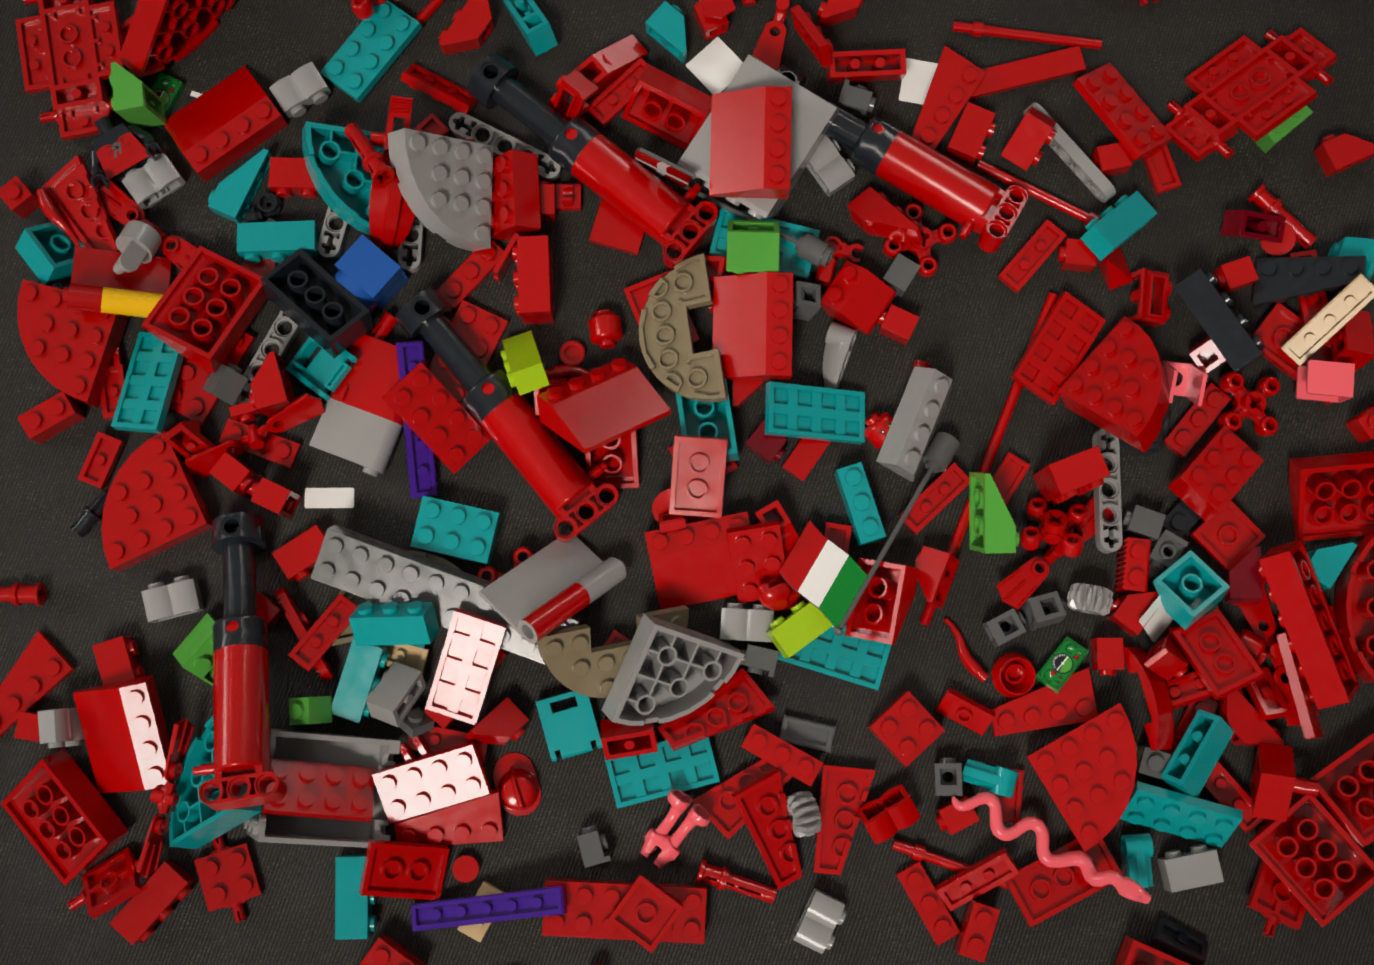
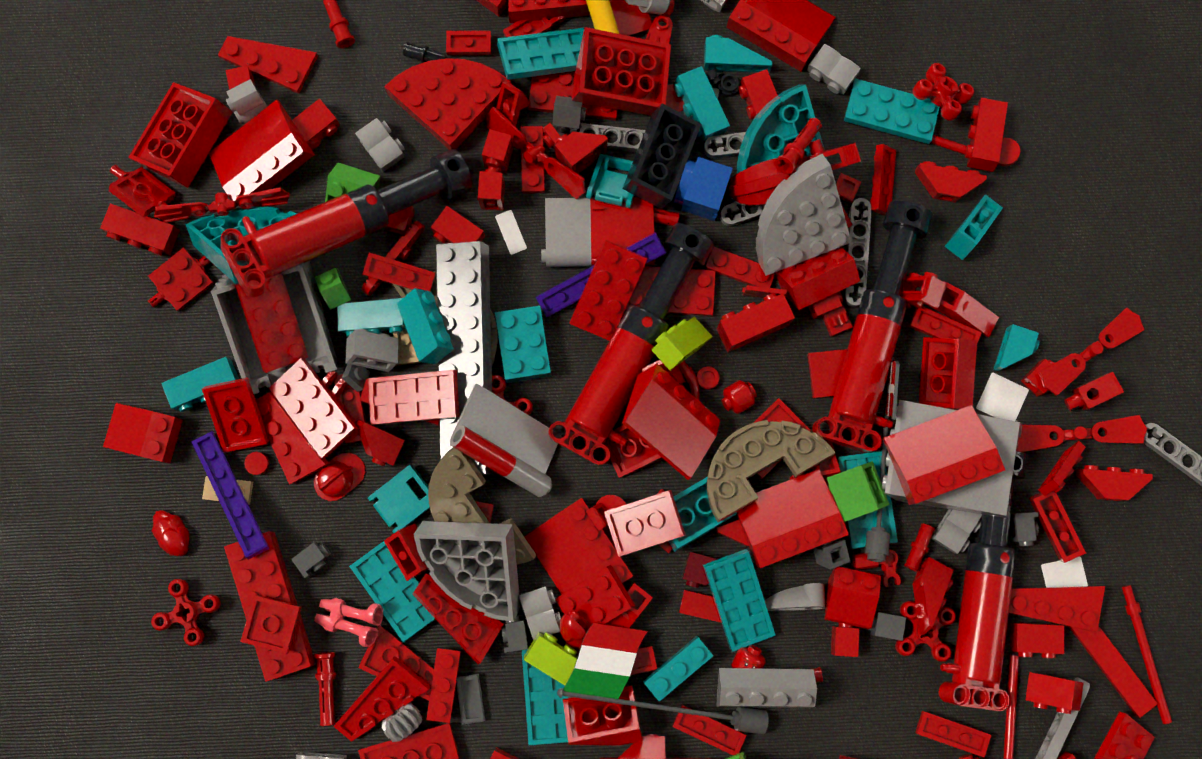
camera: 65 degrees right, 0 degrees up
(833, 211) = (919, 547): none -> red pin

